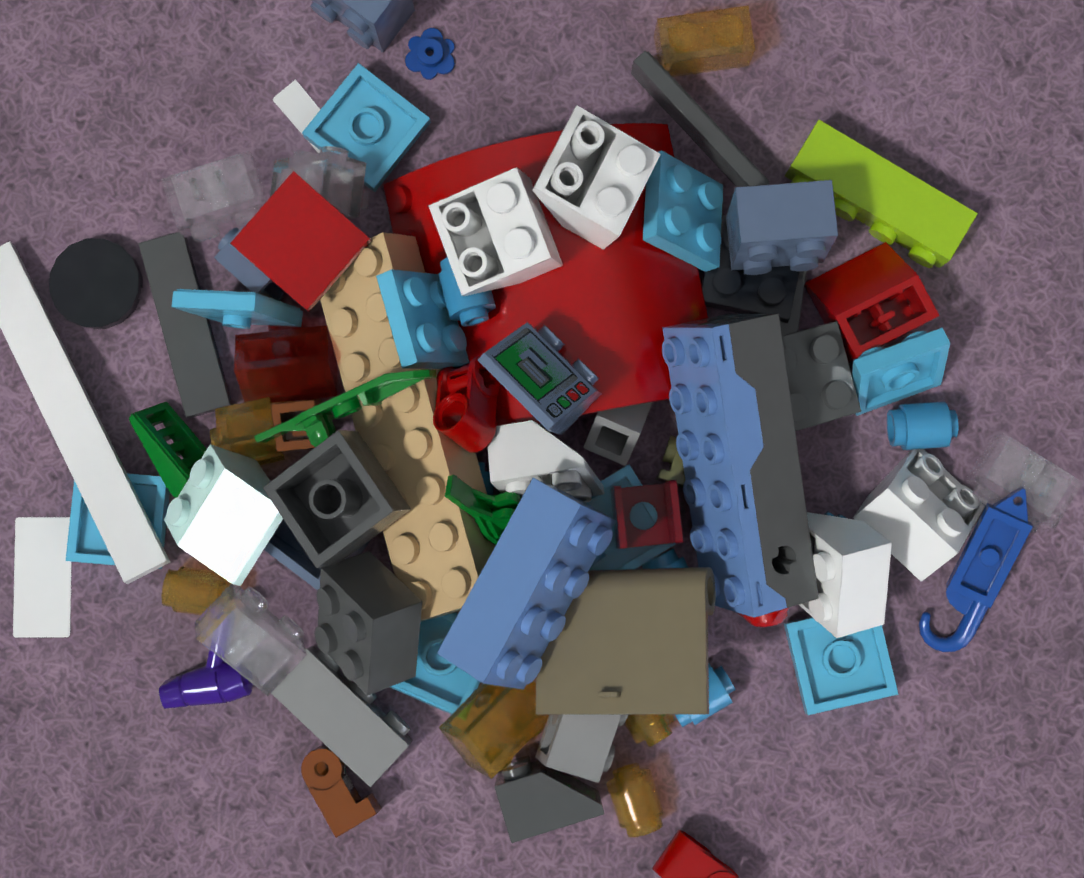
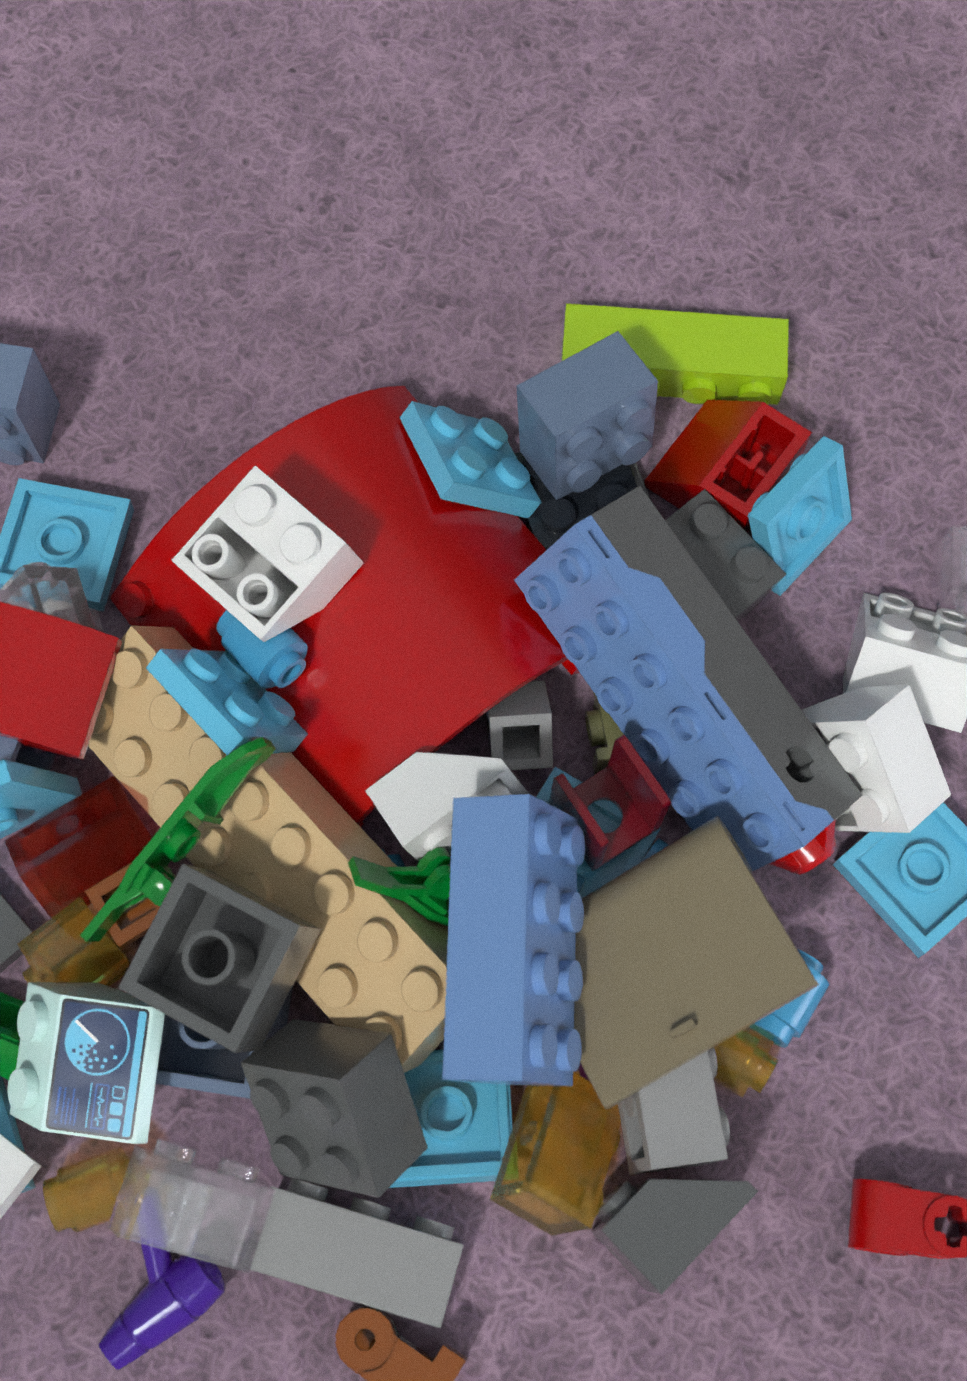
camera: 30 degrees left, 15 degrees down
(439, 62) = (102, 451): blue plant -> none
(467, 405) = (330, 772): red piece -> none
(542, 377) = (403, 689): sand blue slope -> none
(594, 178) = (352, 447): white slope -> none
(635, 800) = (781, 1169): clear yellow brick -> none
(696, 122) = (426, 370): dark grey tile -> none
(705, 41) = (399, 288): clear yellow brick -> none
(922, 425) = (858, 567): dark azure brick -> none

